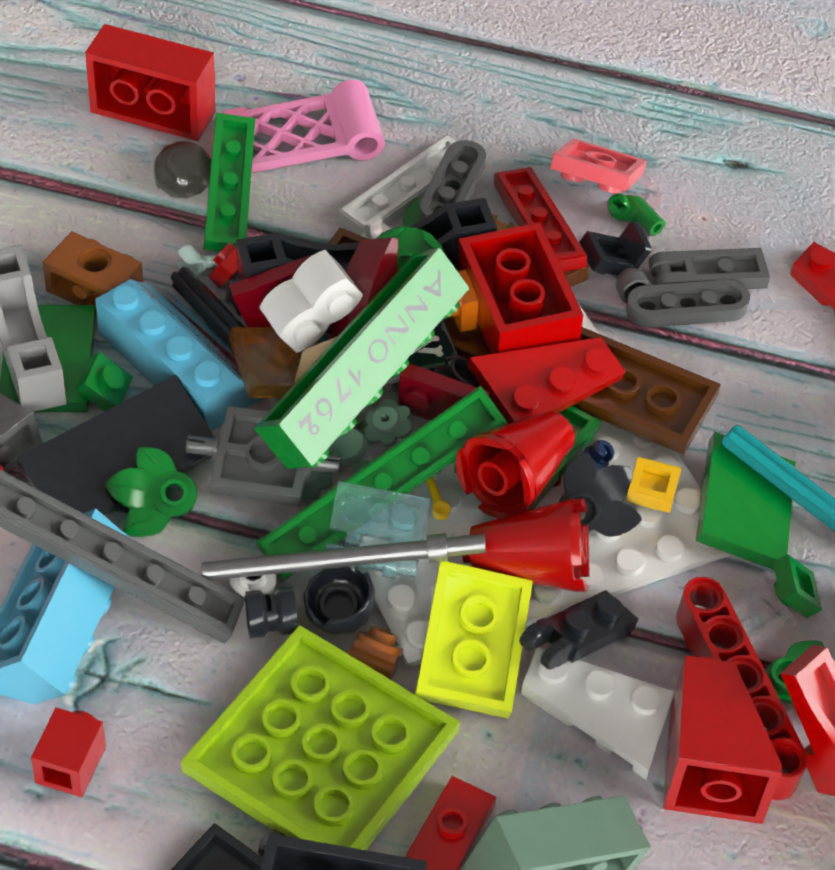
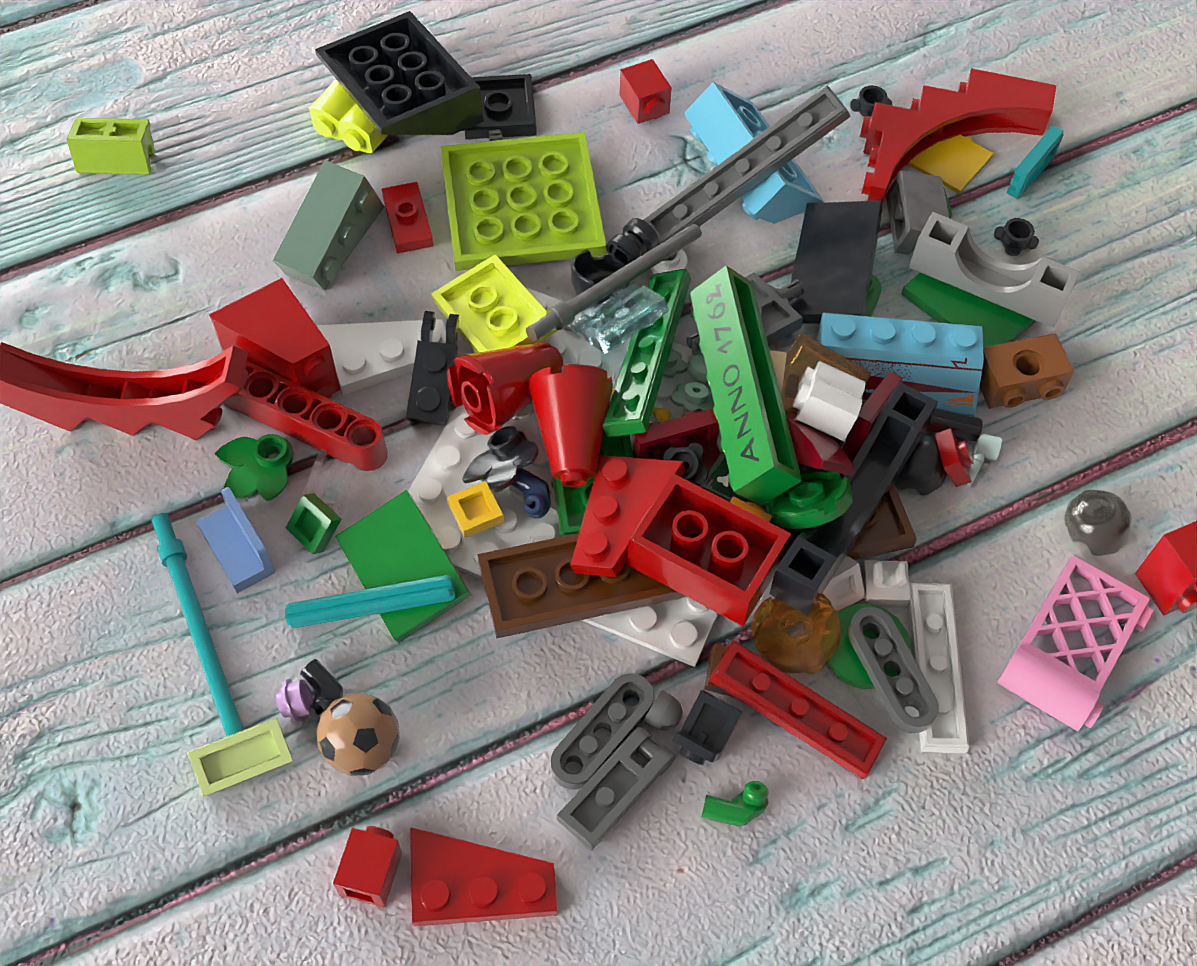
camera: 140 degrees right, 10 degrees up
(104, 382) = (910, 301): green plate -> none
(144, 492) = (788, 258): green plate -> none
(229, 181) = (1049, 526): green plate -> none
(377, 650) = (549, 275): dark orange plate -> none
(595, 163) = (810, 814): coral plate -> none

